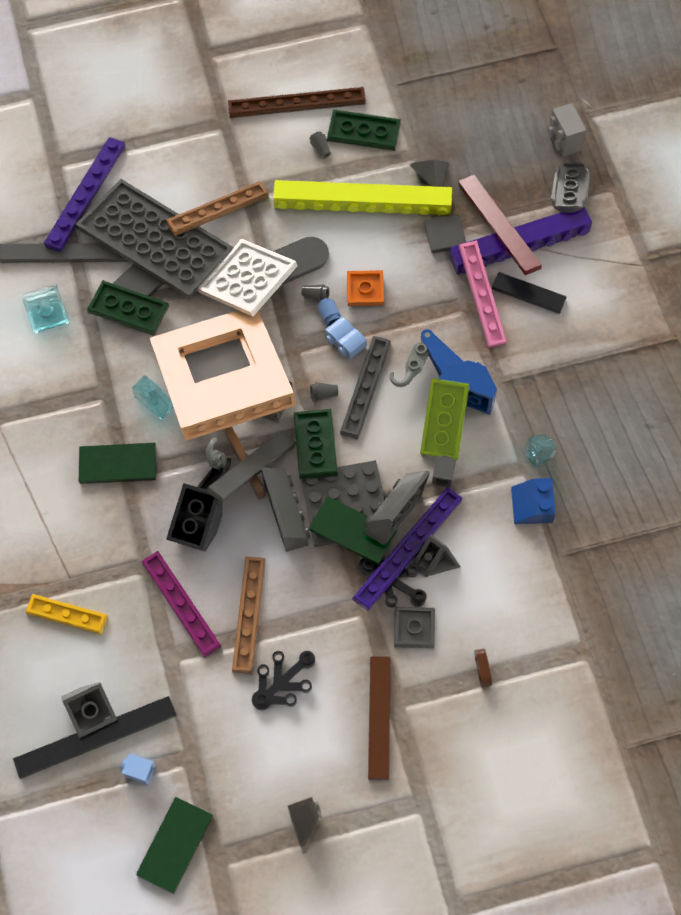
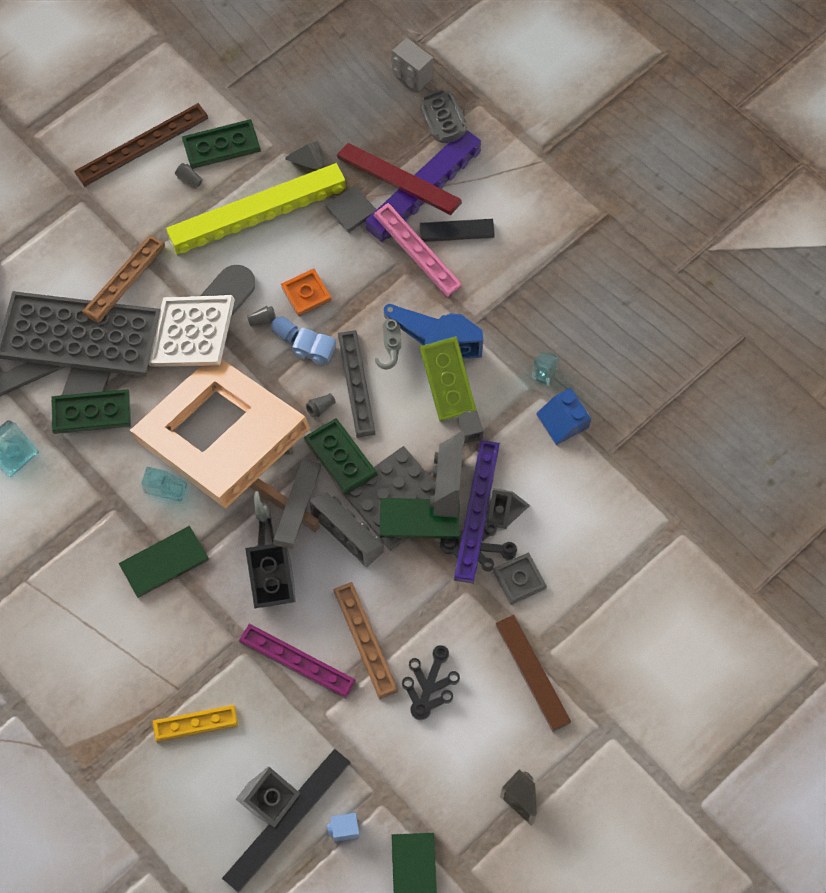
camera: 30 degrees left, 0 degrees up
(483, 668) = (600, 584): reddish brown beam -> none

